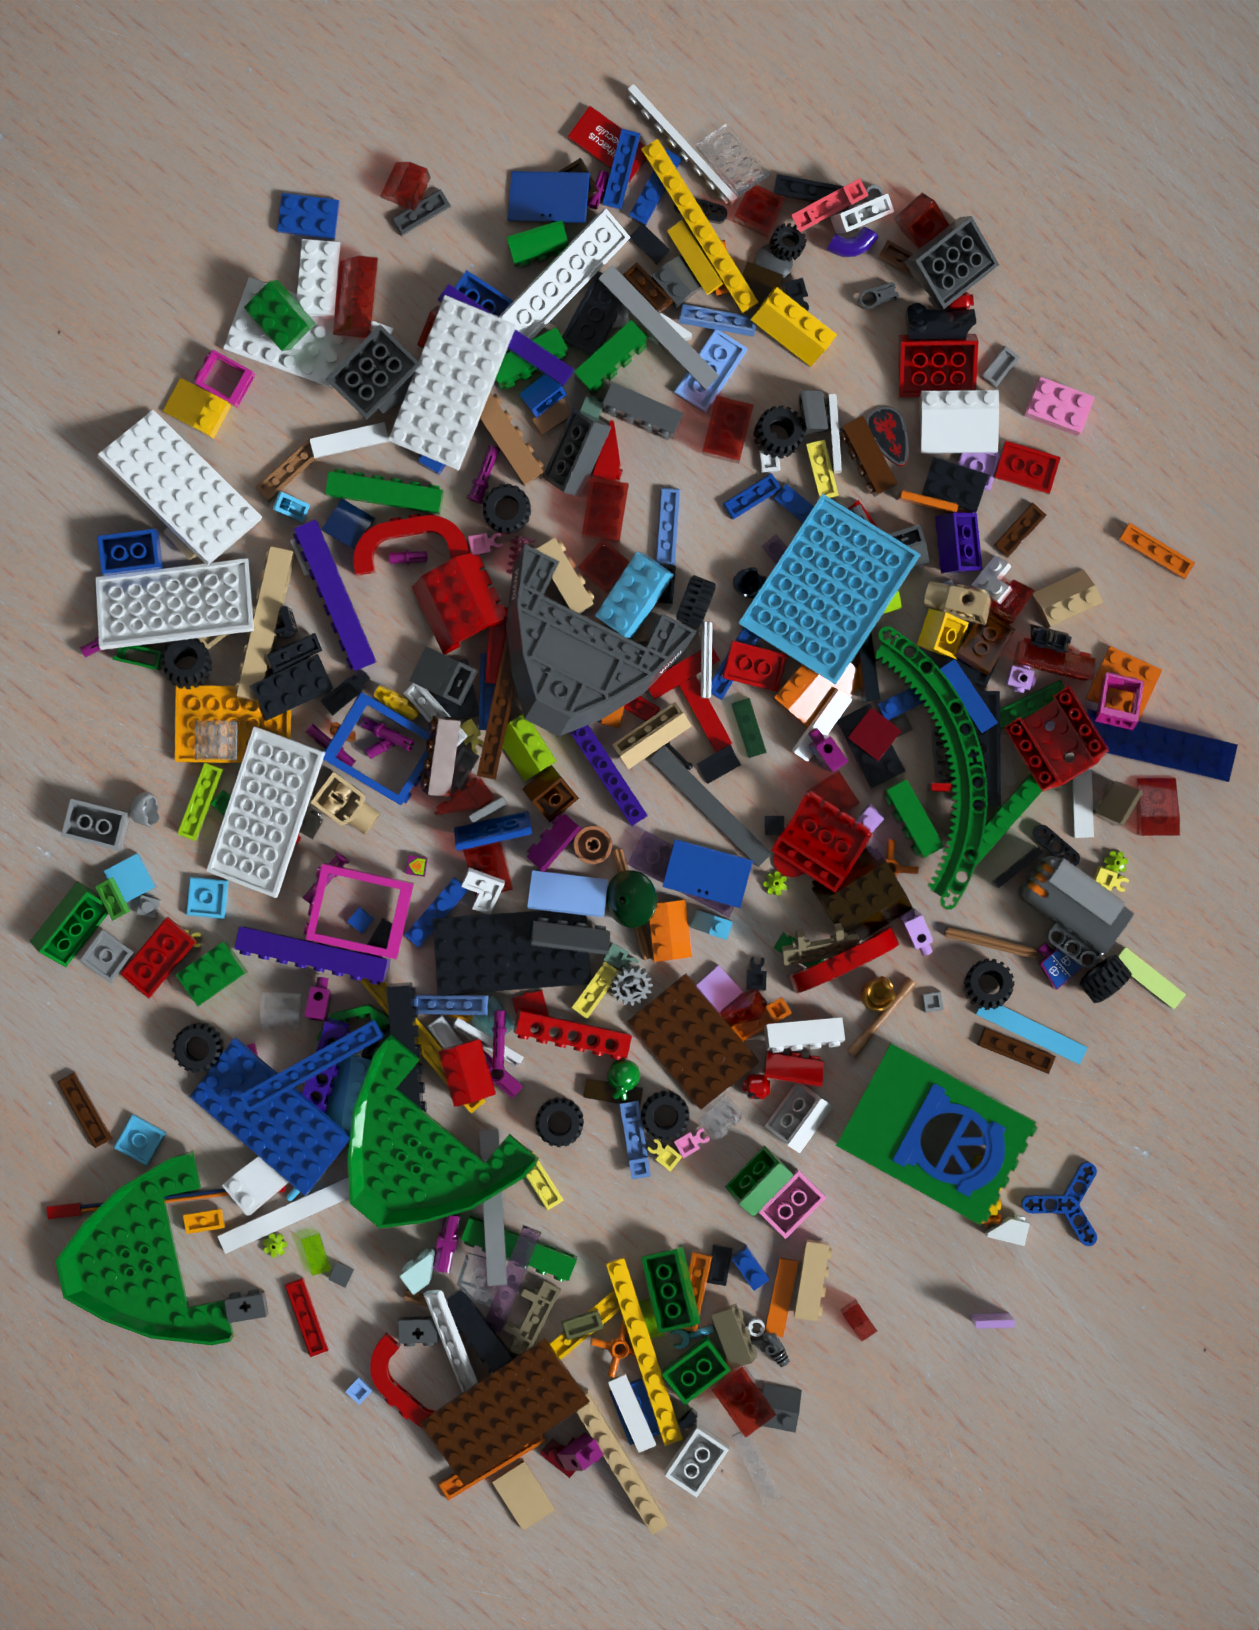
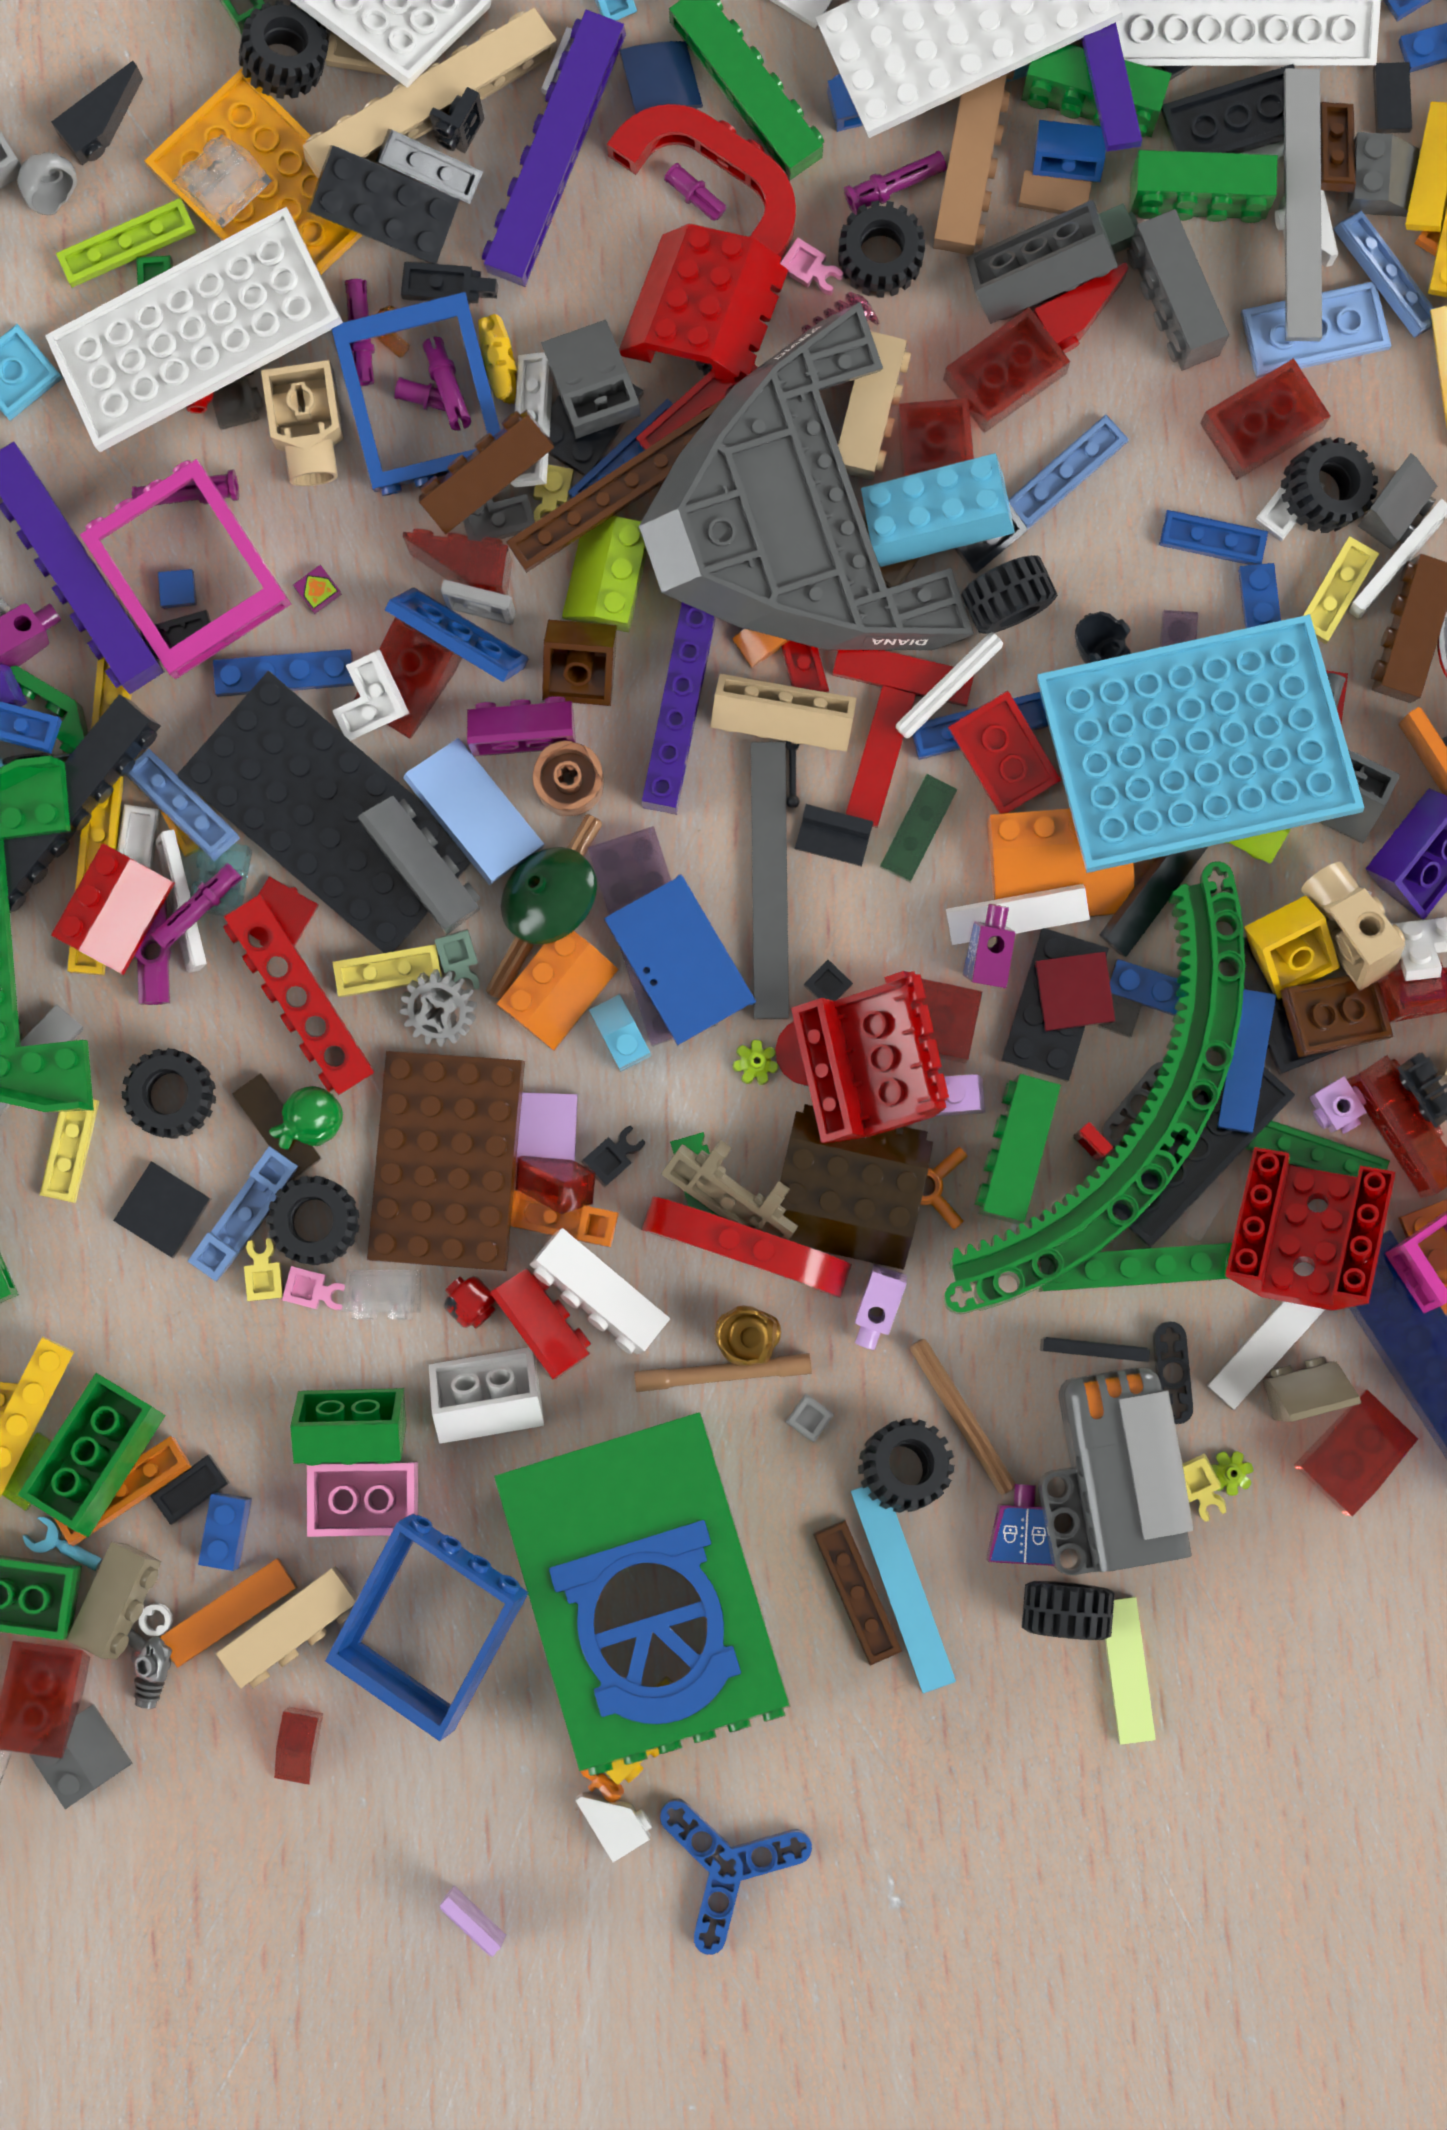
camera: 50 degrees right, 5 degrees down
(137, 762) = (96, 117): none -> black slope
(600, 1168) = (162, 1209): none -> black tile
(870, 1262) = (384, 1678): none -> blue window

